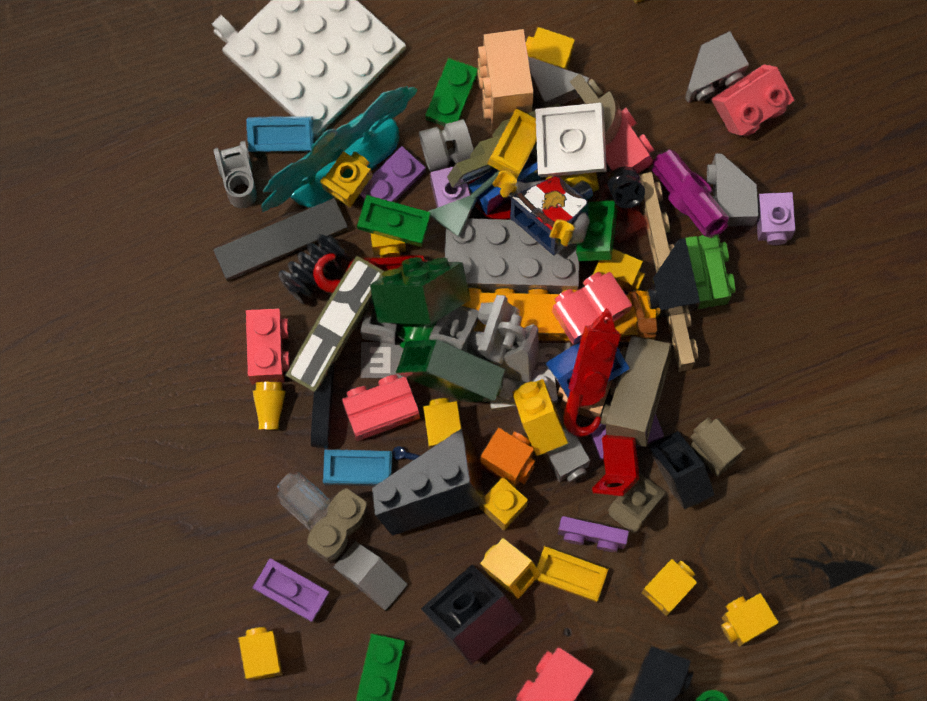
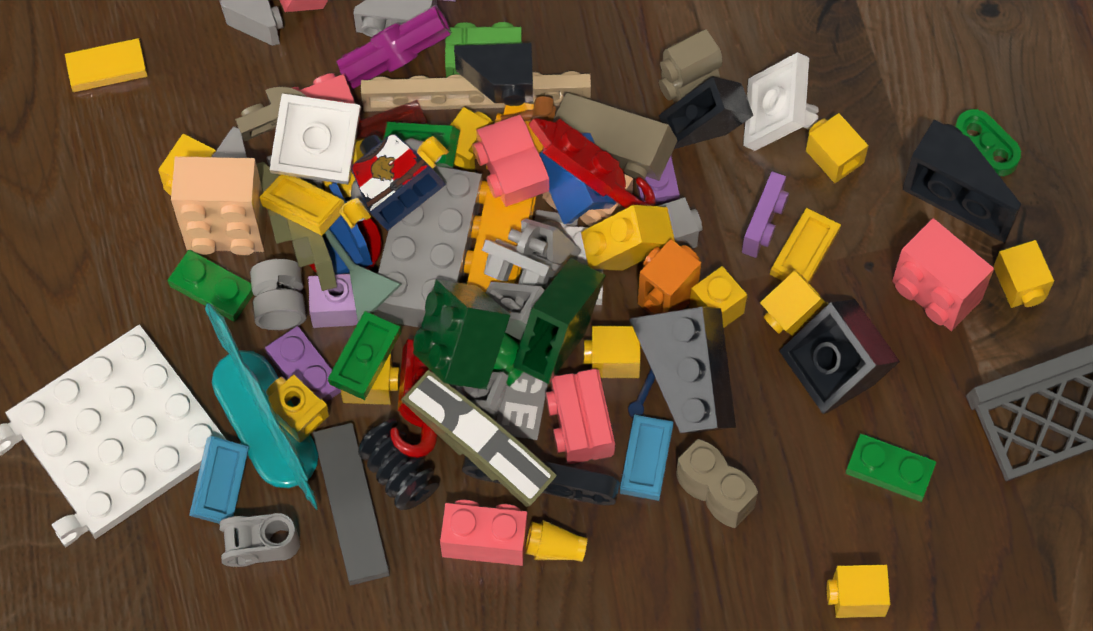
camera: 80 degrees left, 10 degrees down
(291, 590) = (784, 550): medium lavender plate -> none
(303, 499) = (684, 511): clear brick -> none
(370, 575) = (778, 459): light grey slope -> none
(620, 465) = (694, 172): red bracket -> none
(627, 195) = (376, 105): black wheel -> none
(636, 504) = (738, 167): dark tan slope -> none
(698, 530) = (779, 102): none -> white tile
(747, 619) = (882, 76): yellow brick -> none

